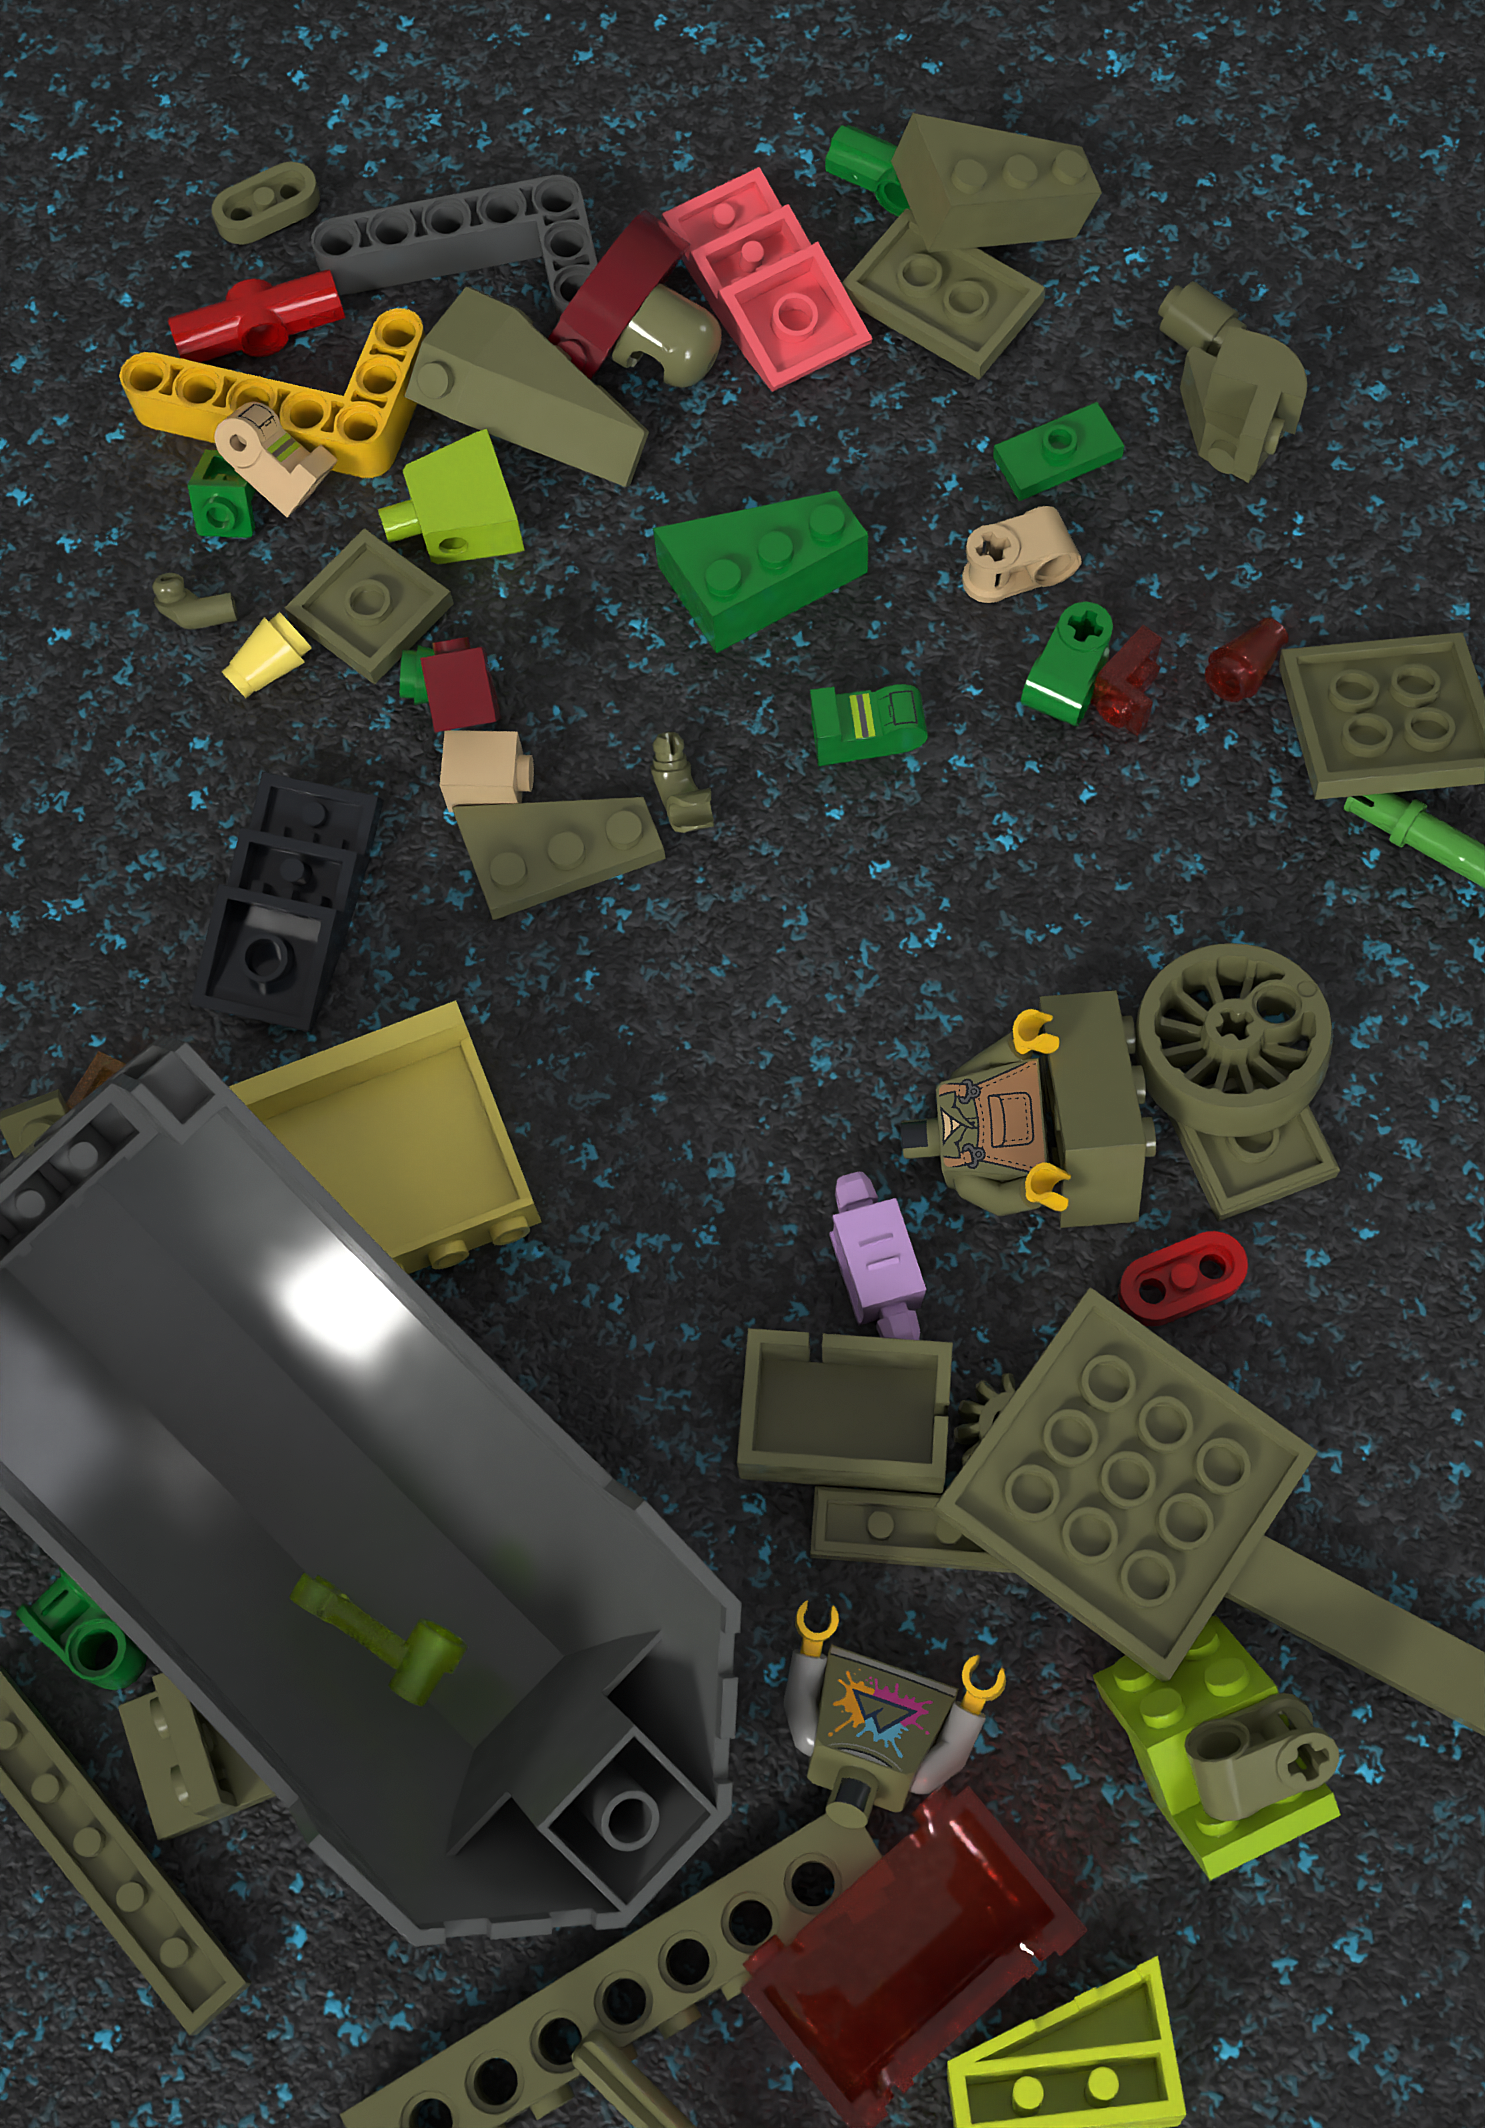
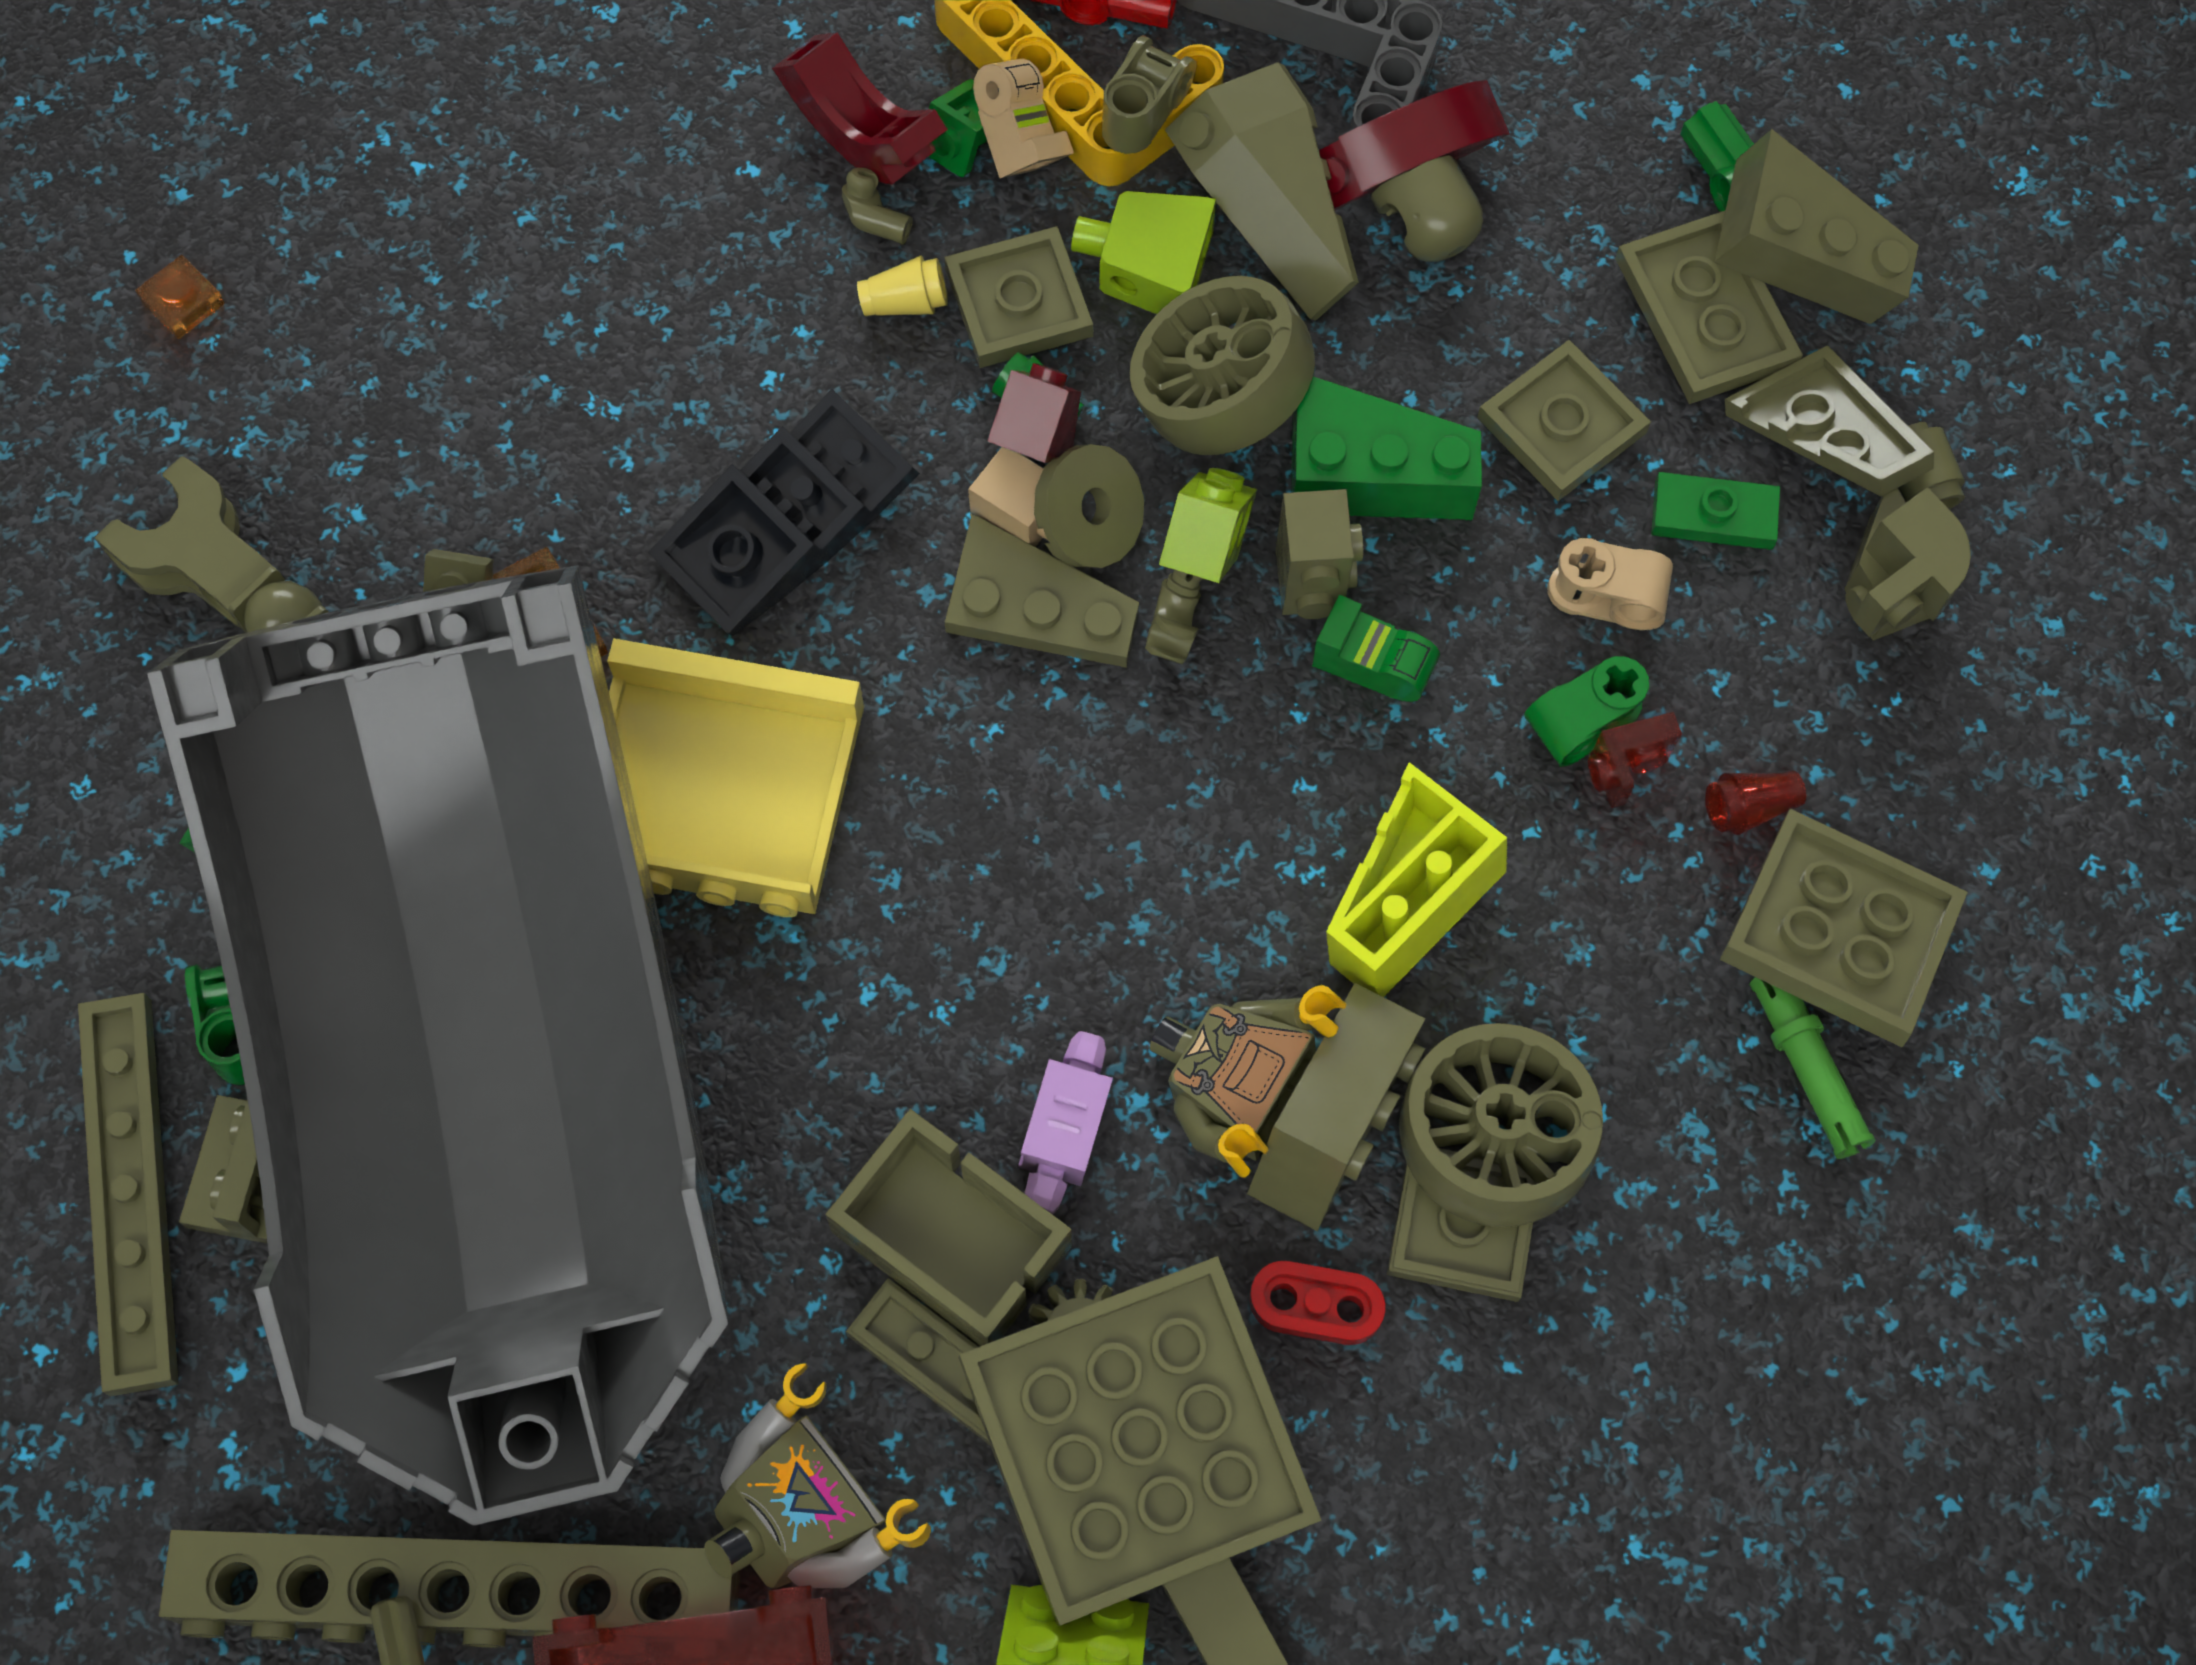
camera: 25 degrees right, 0 degrees up
(126, 534) = (853, 111): none -> dark red arch
(371, 376) = (1143, 95): none -> olive piece
(417, 1661) = (463, 1208): clear neon green brick -> none
(572, 726) = (1117, 502): none -> olive tile
(599, 579) = (1232, 381): none -> olive piece
(665, 695) = (1208, 524): none -> lime brick
(767, 280) = (1557, 204): coral slope -> none
(767, 667) = (1316, 552): none -> olive brick
(889, 448) = (1563, 420): none -> olive plate
(1031, 886) = (1414, 884): none -> neon yellow wedge
(1108, 323) = (1835, 421): none -> olive wing

